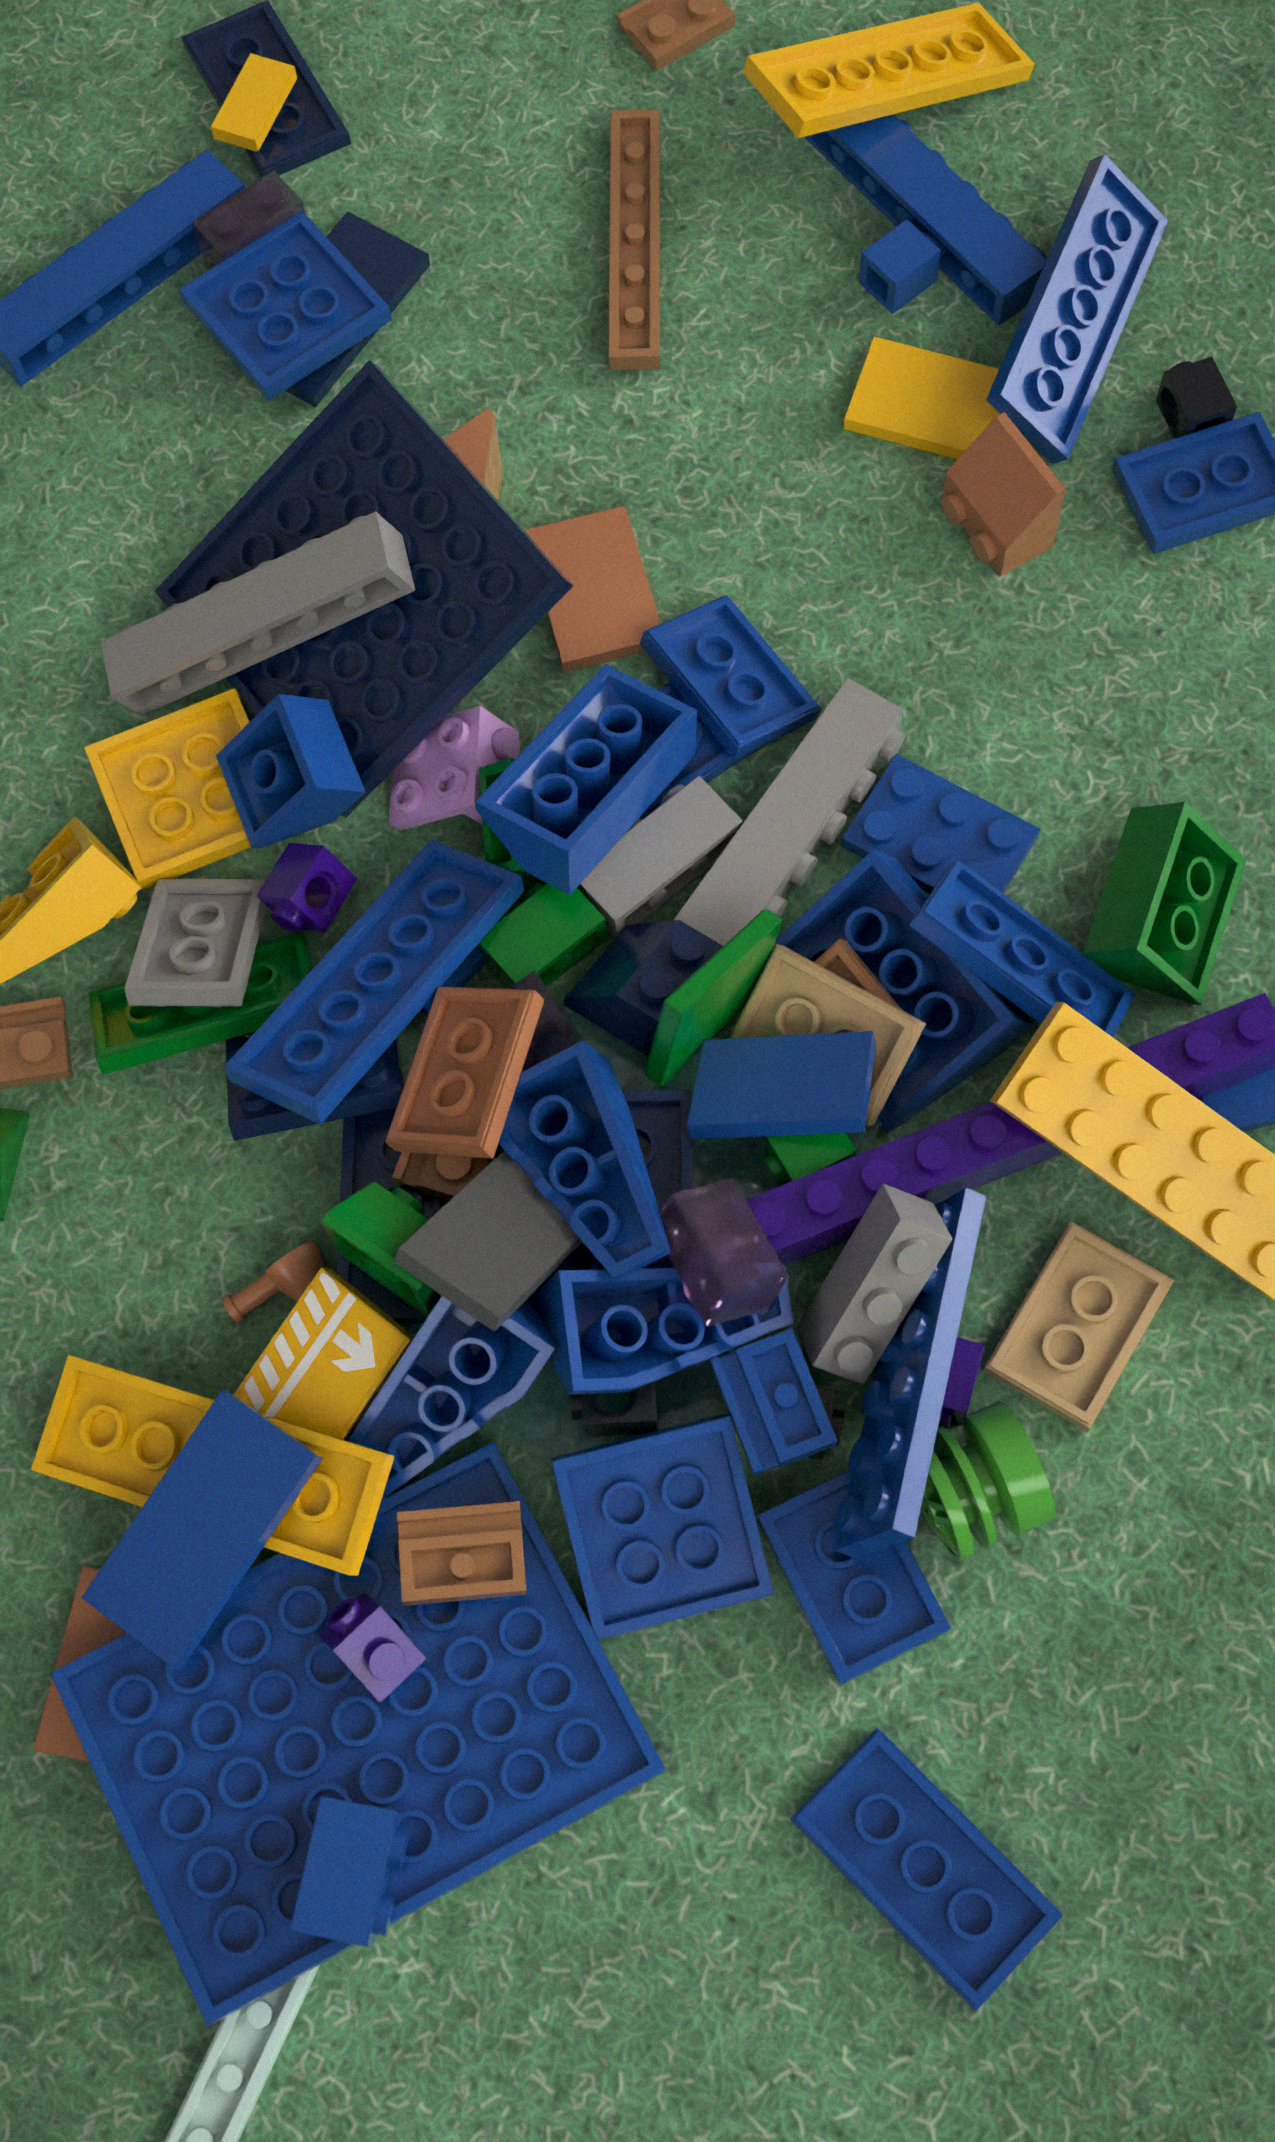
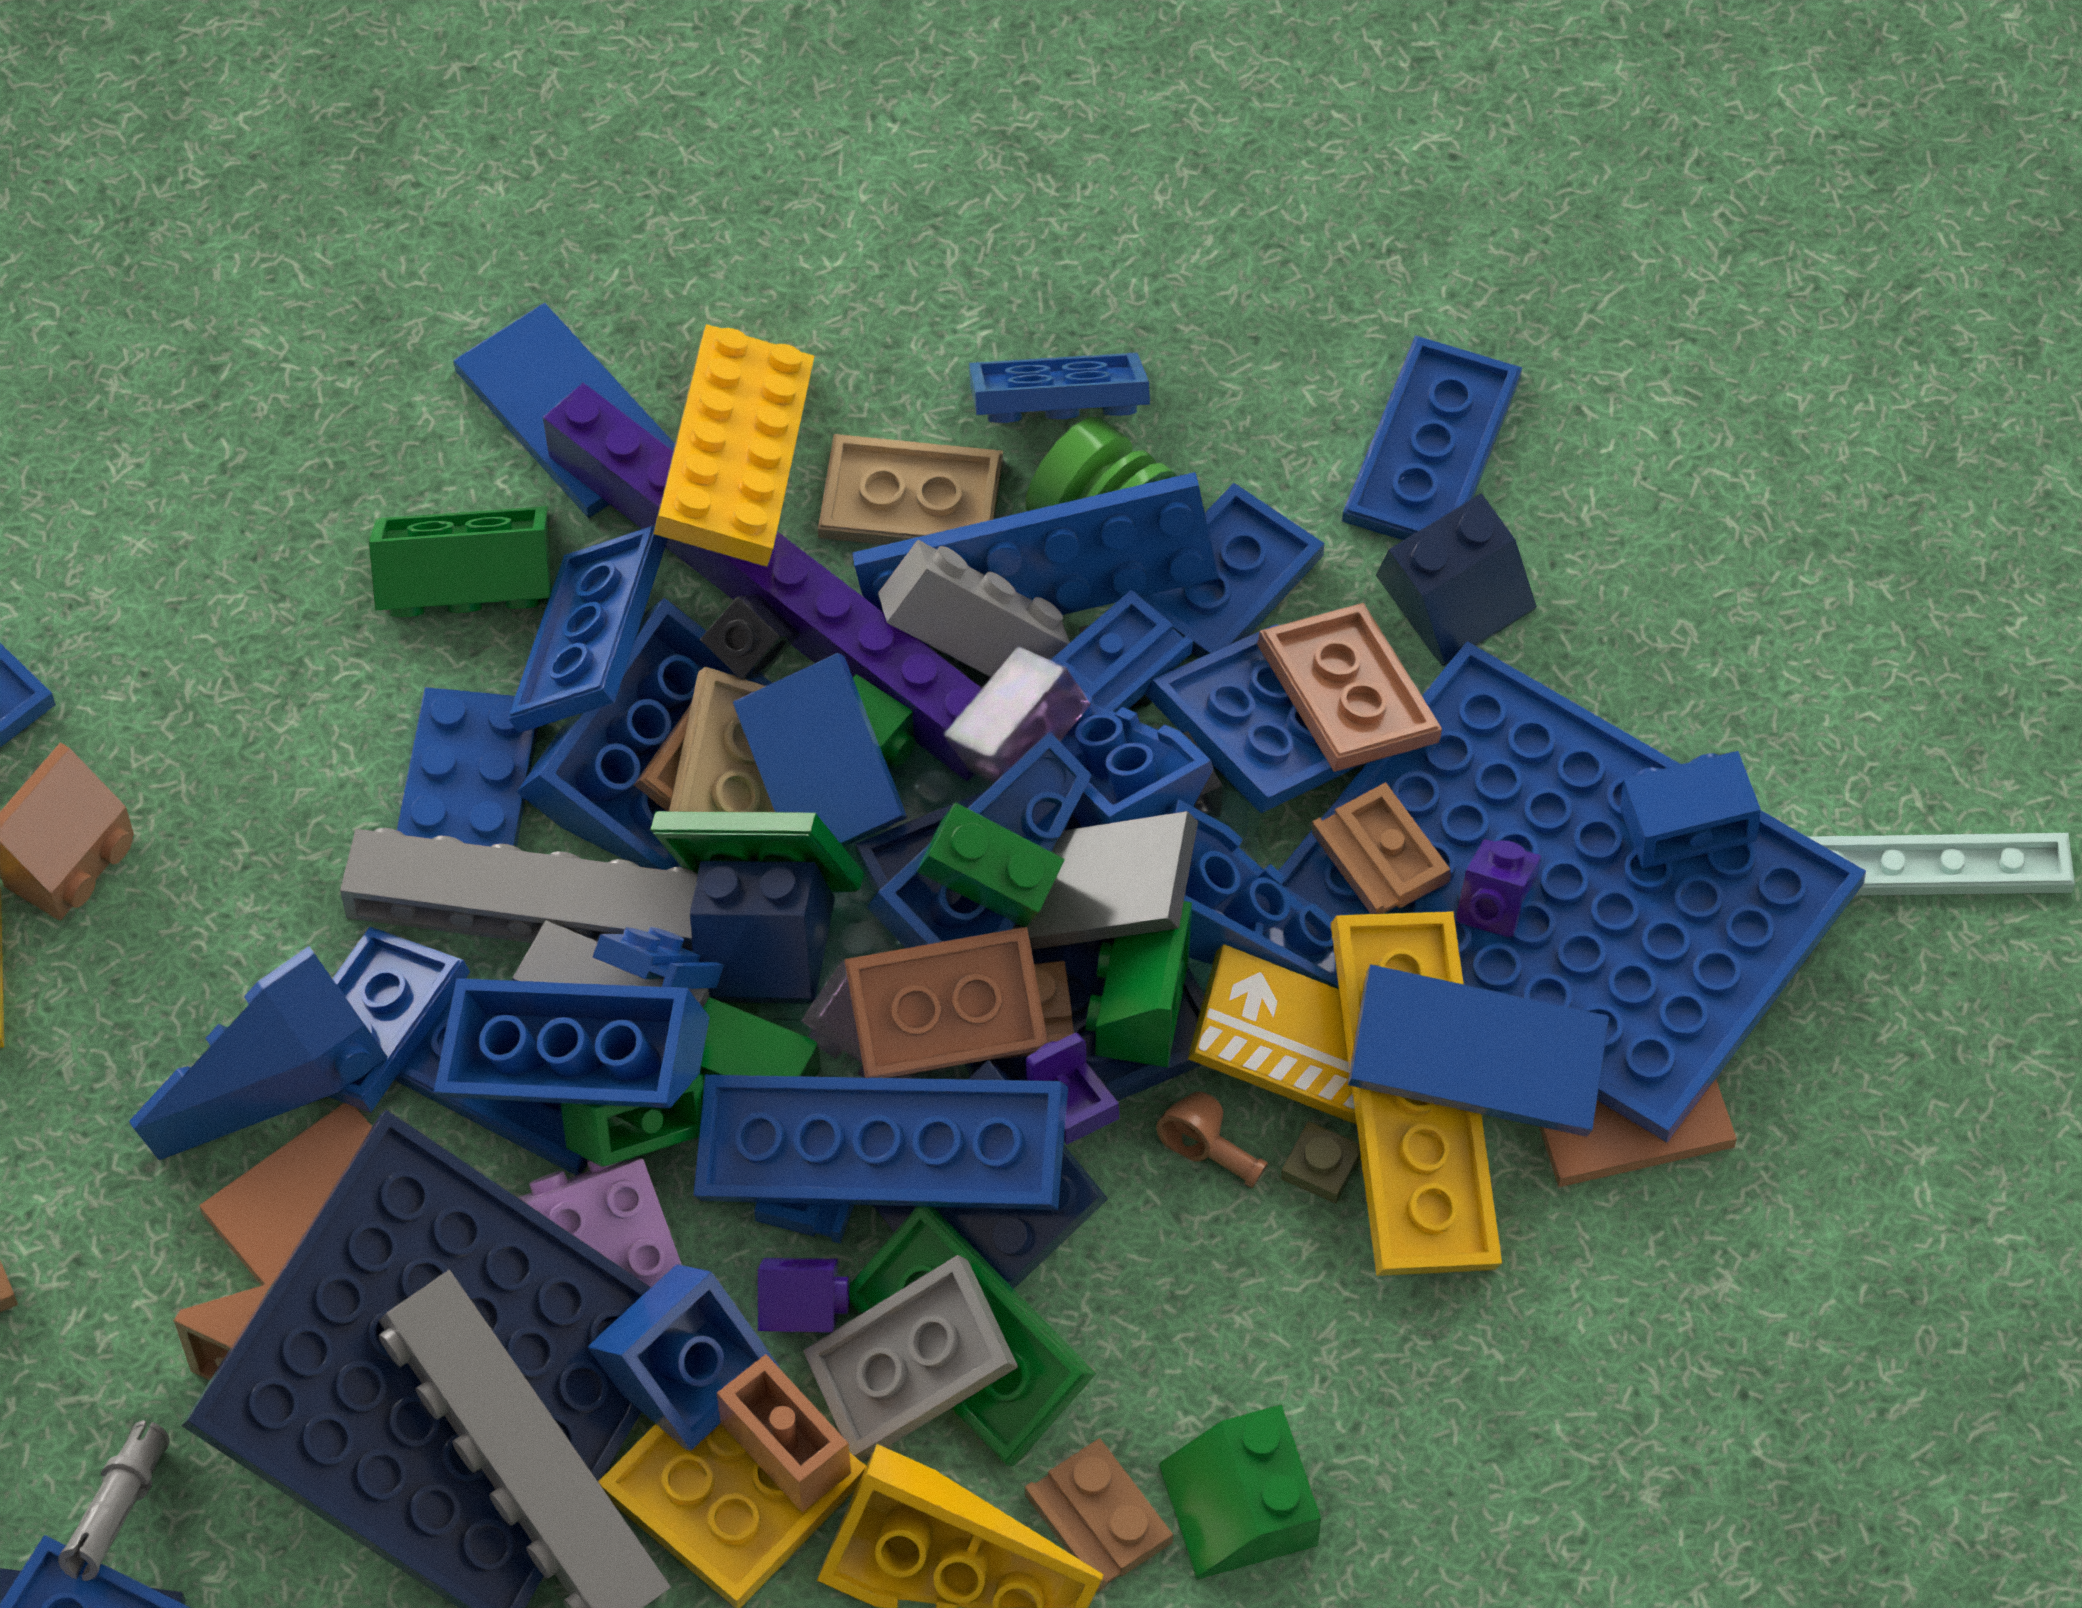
camera: 120 degrees left, 10 degrees down
(171, 808) = (784, 1433): none -> nougat brick
(213, 1366) = (1321, 1162): none -> olive plate
(340, 1147) = (1088, 1099): none -> dark purple bracket
(410, 376) = (123, 1484): none -> light grey pin
(548, 1134) = (990, 865): none -> green brick
(636, 869) = (657, 957): none -> blue plate
(658, 1618) = (1349, 687): none -> nougat tile
(710, 579) = (279, 1054): none -> blue wedge
(737, 1794) = (1458, 579): none -> dark blue slope
(940, 1075) = (749, 636): none -> black brick
(1121, 1492) = (1059, 386): none -> blue plate

